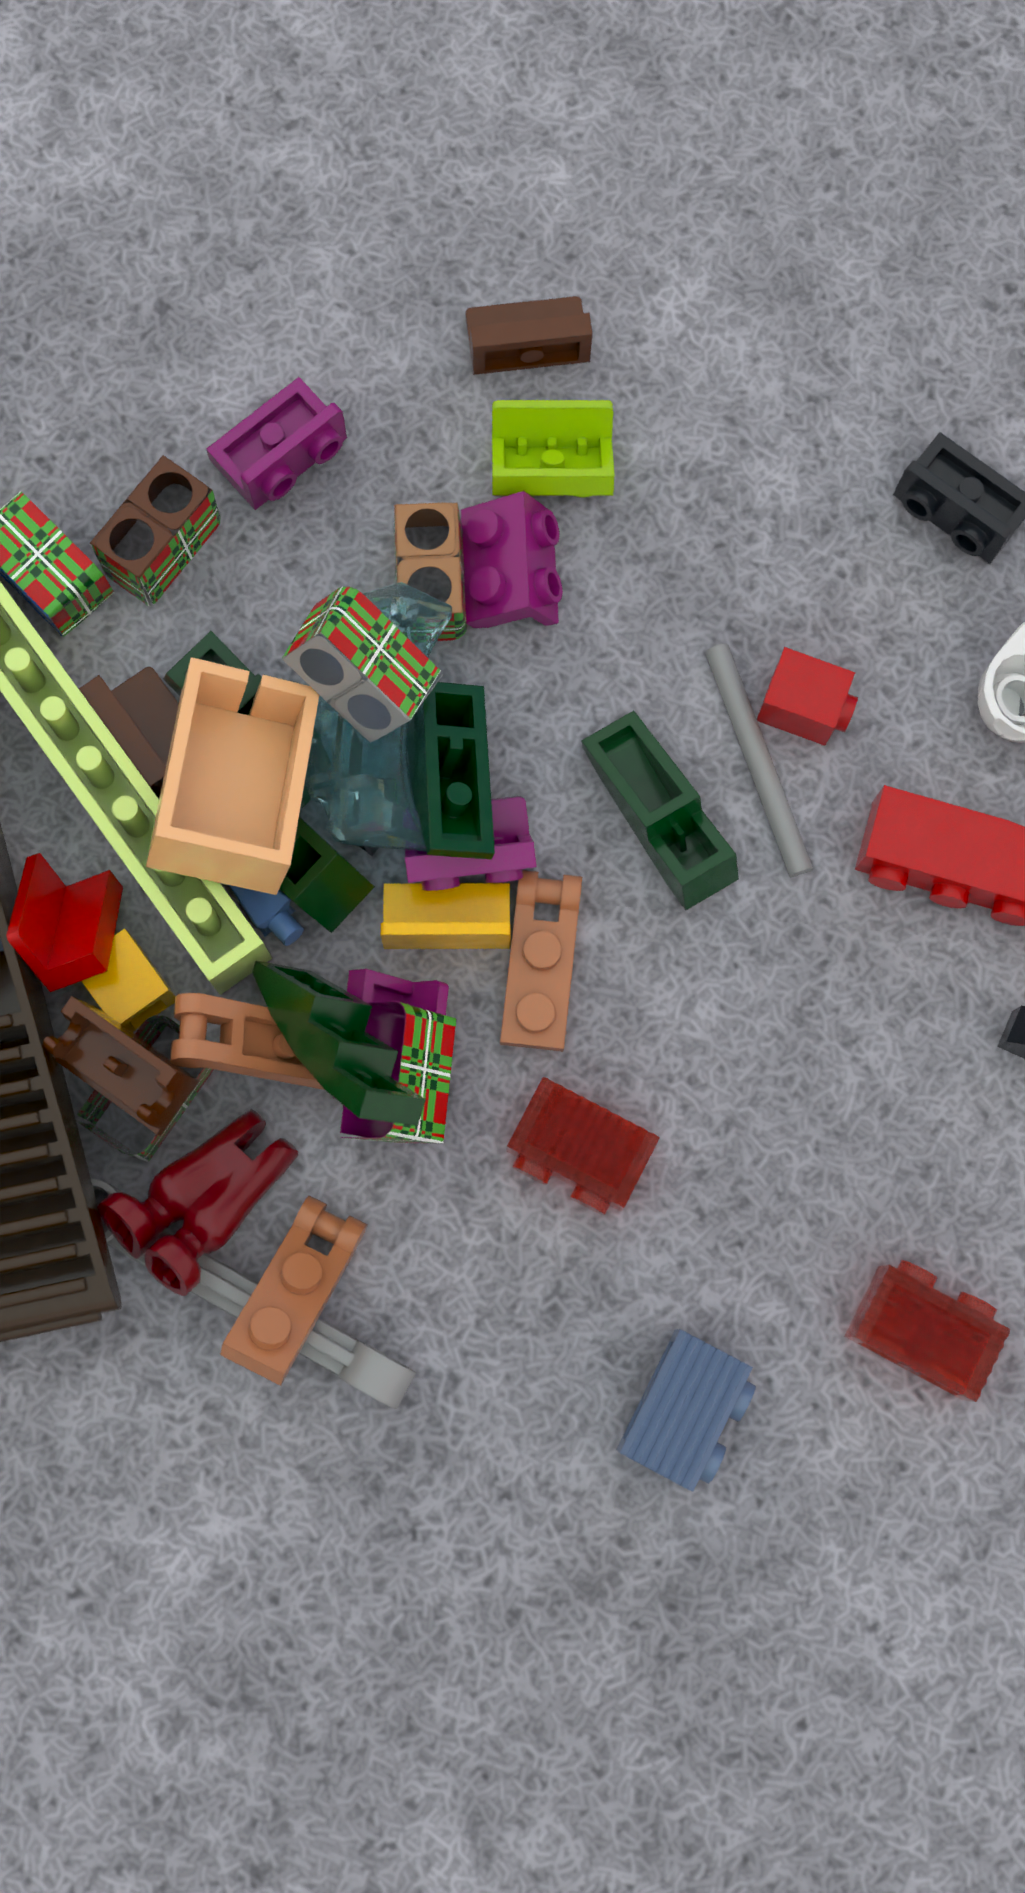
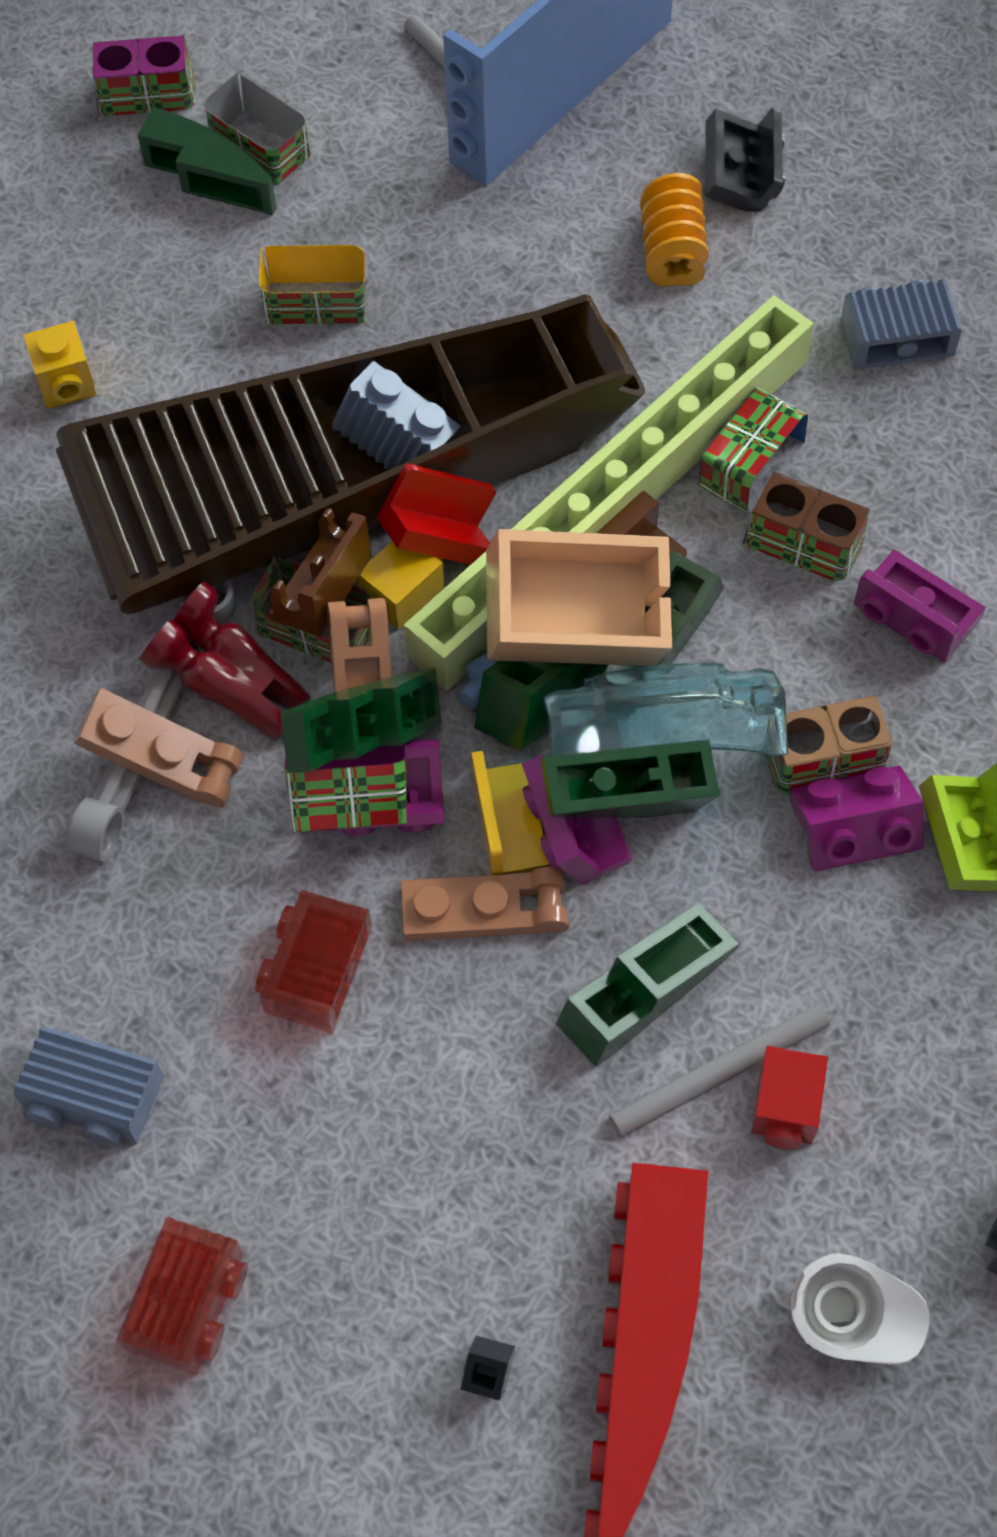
camera: 85 degrees right, 15 degrees down
(361, 663) = (699, 672): piece -> none

